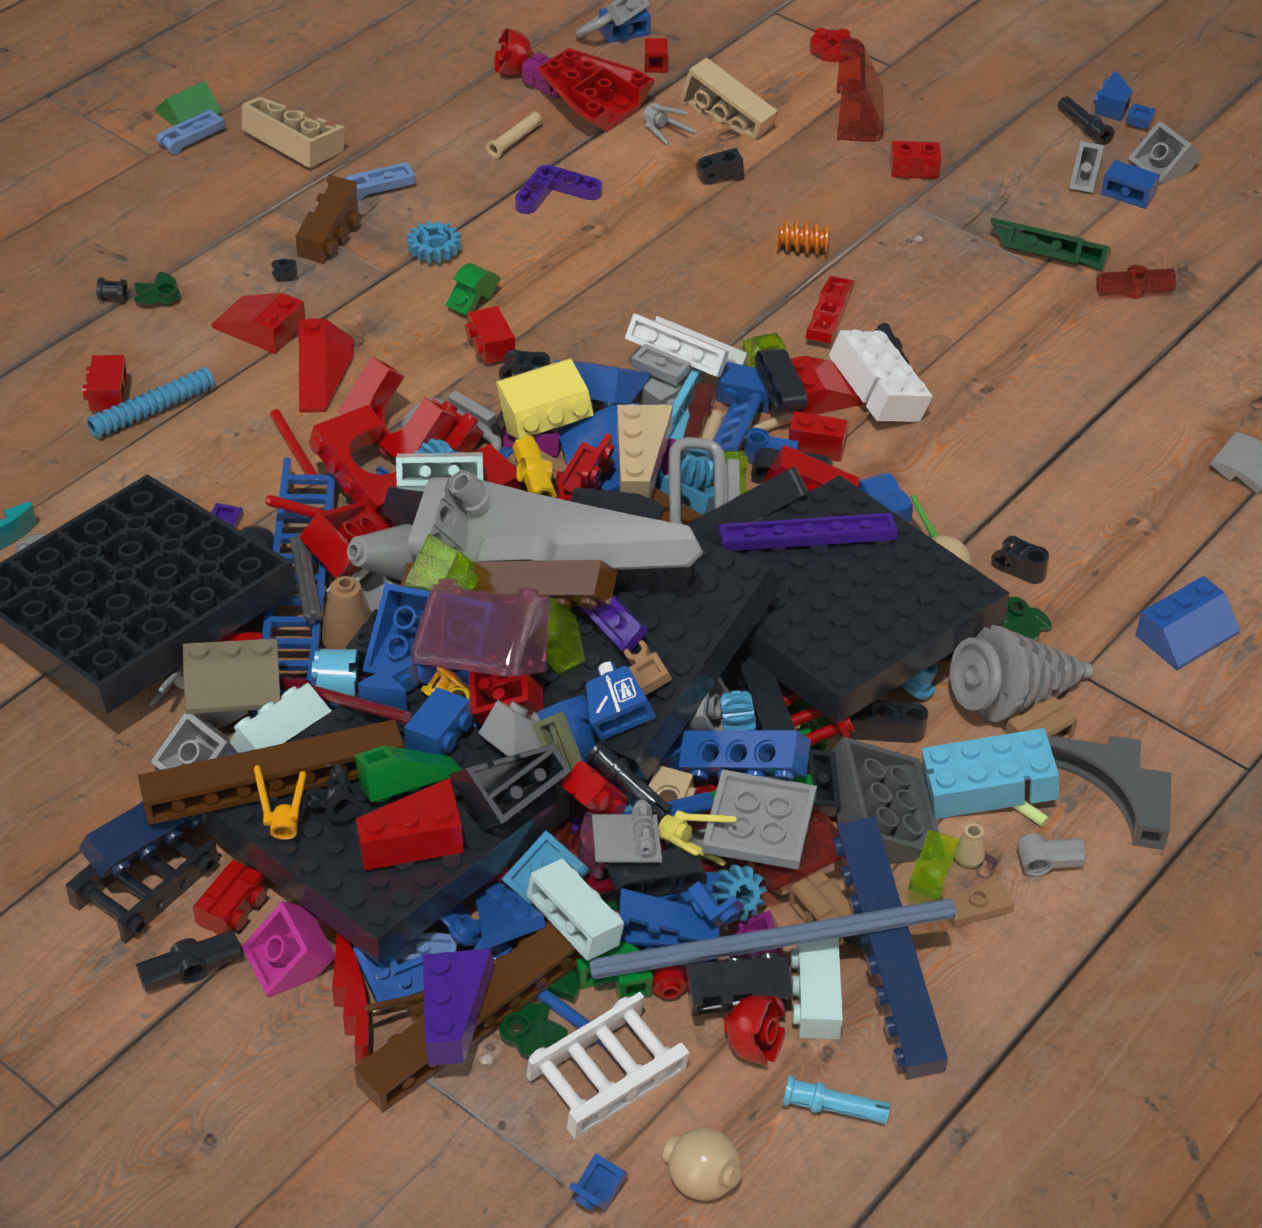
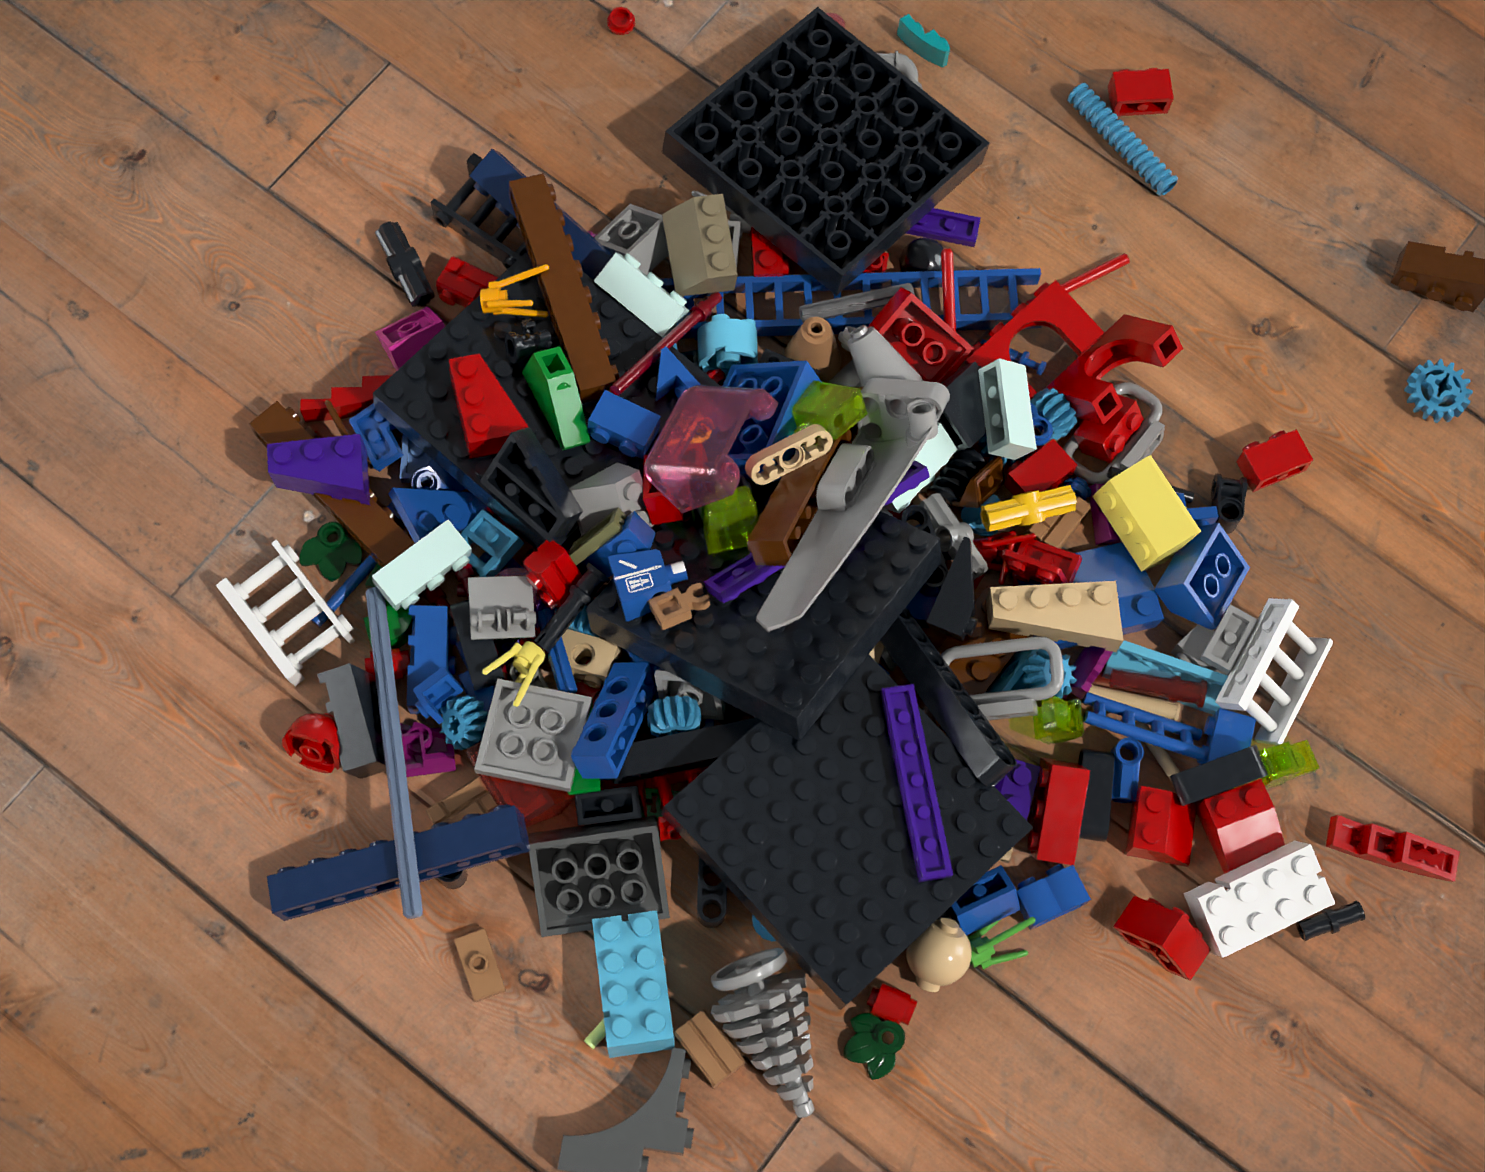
camera: 85 degrees right, 25 degrees up
(111, 289) = (1293, 73): black bush -> none
(162, 291) = (1309, 120): dark green plate -> none
(263, 320) = (1271, 228): red slope -> none
(284, 269) = (1362, 247): black plate -> none
(322, 362) = (1215, 292): red wedge -> none
(470, 286) = (1360, 433): green brick -> none
(486, 574) = (776, 451): none -> tan beam
(598, 1183) = (164, 607): blue bracket -> none
(703, 1163) = (178, 694): tan brick -> none
(817, 989) = (365, 801): light aqua brick -> none
(820, 1098) = (250, 800): medium azure pin -> none
(913, 432) = (1164, 934): none -> red brick
(934, 865) = (507, 917): clear neon green brick -> none
(971, 847) = (544, 968): tan cone -> none
(1023, 560) = (973, 1045): black piece -> none
(1041, 855) = (537, 1036): light grey piece -> none

